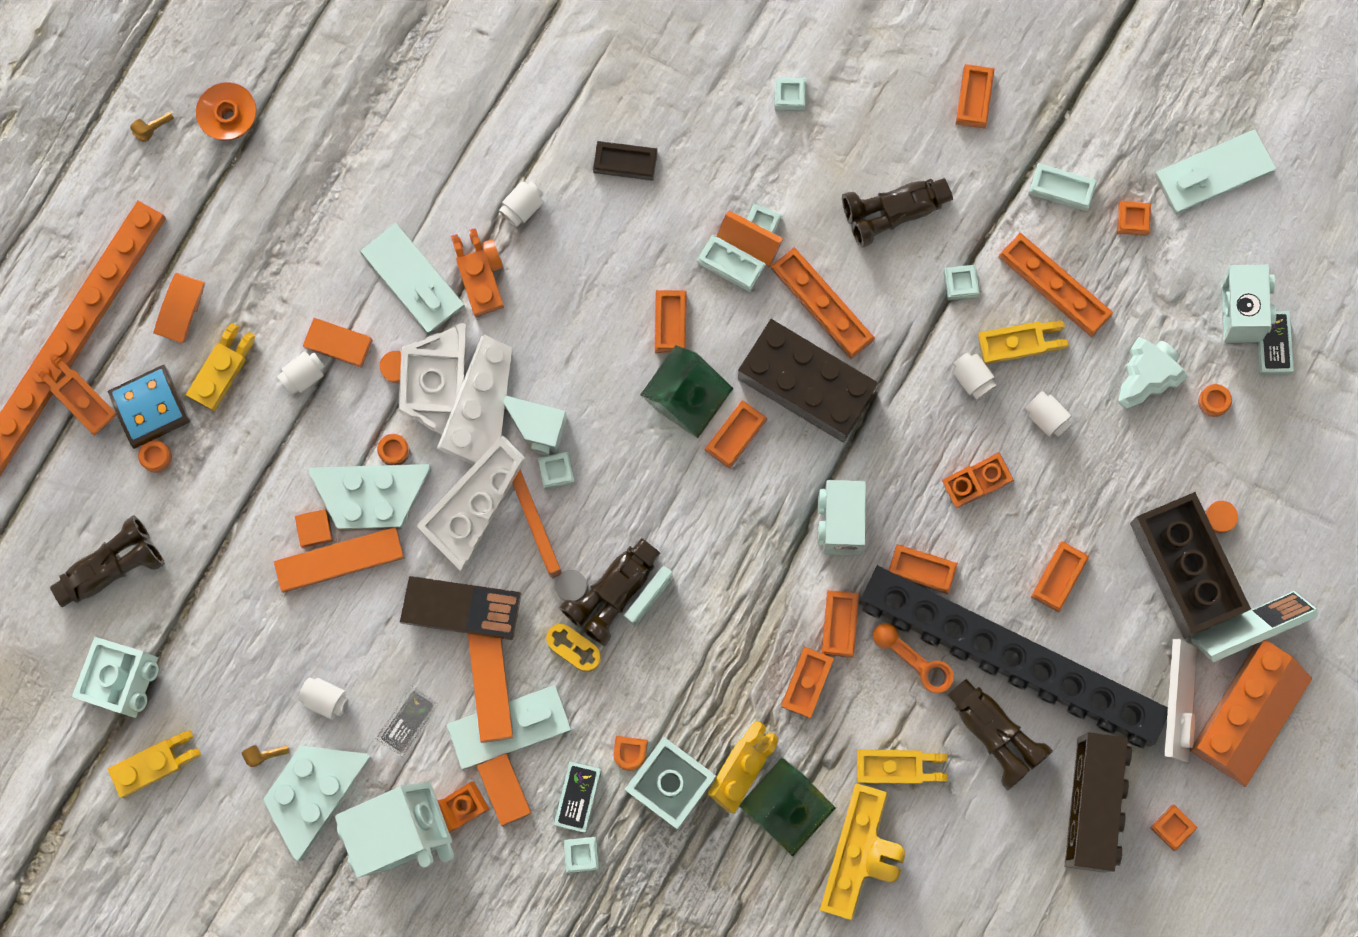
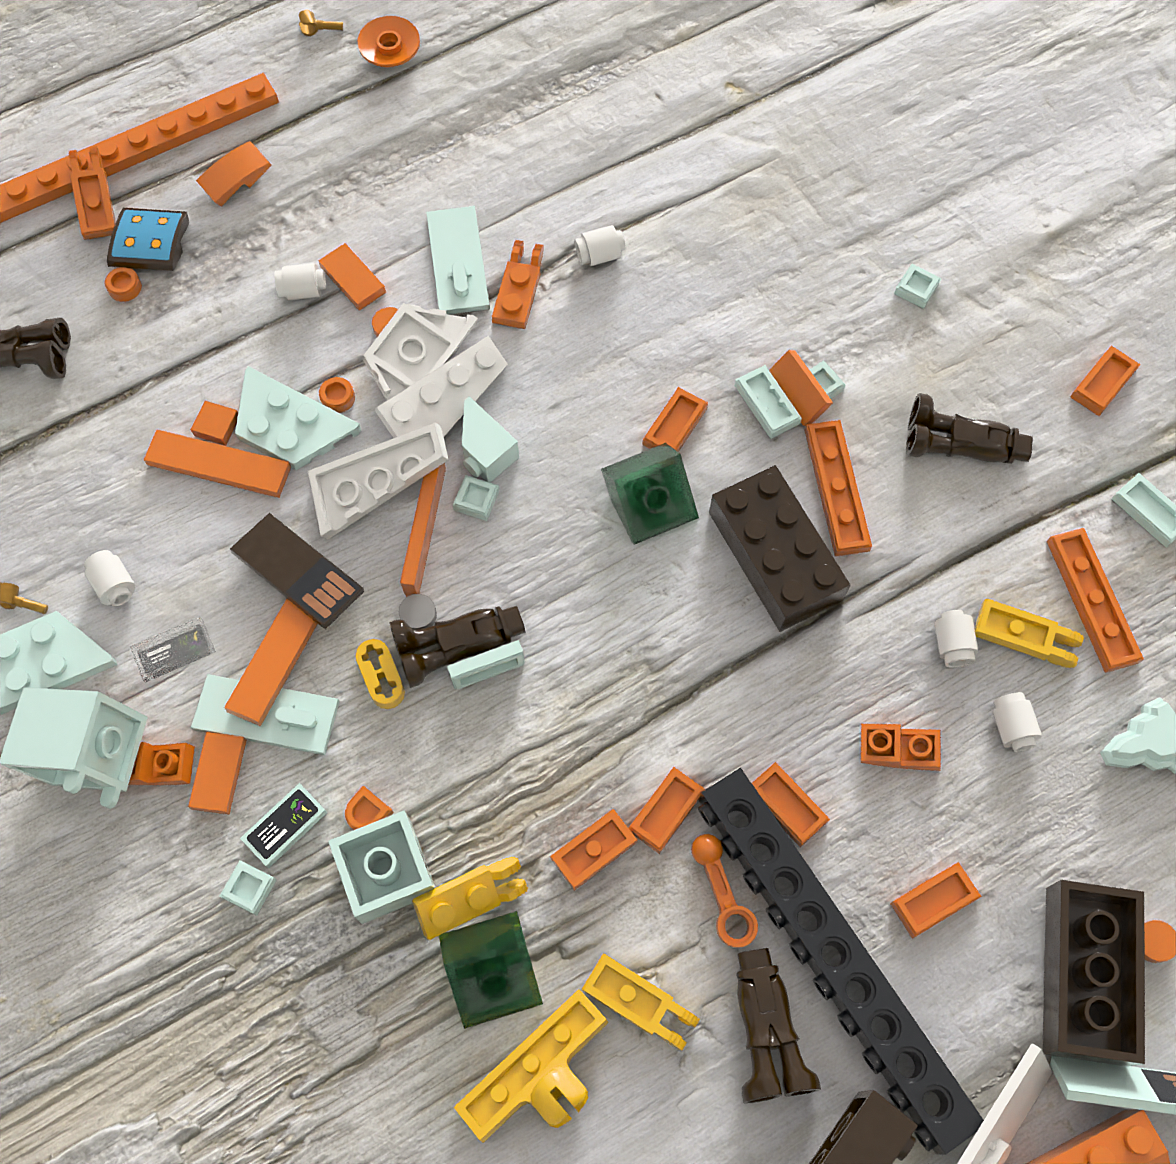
camera: 25 degrees right, 10 degrees down
(220, 369) = (235, 242): yellow hinge -> none
(492, 255) = (543, 275): orange tile -> none
(625, 160) = (722, 262): dark brown tile -> none
(736, 434) = (674, 561): orange tile -> none
(844, 517) = (734, 697): light aqua brick -> none
(961, 282) = (993, 544): light aqua tile -> none

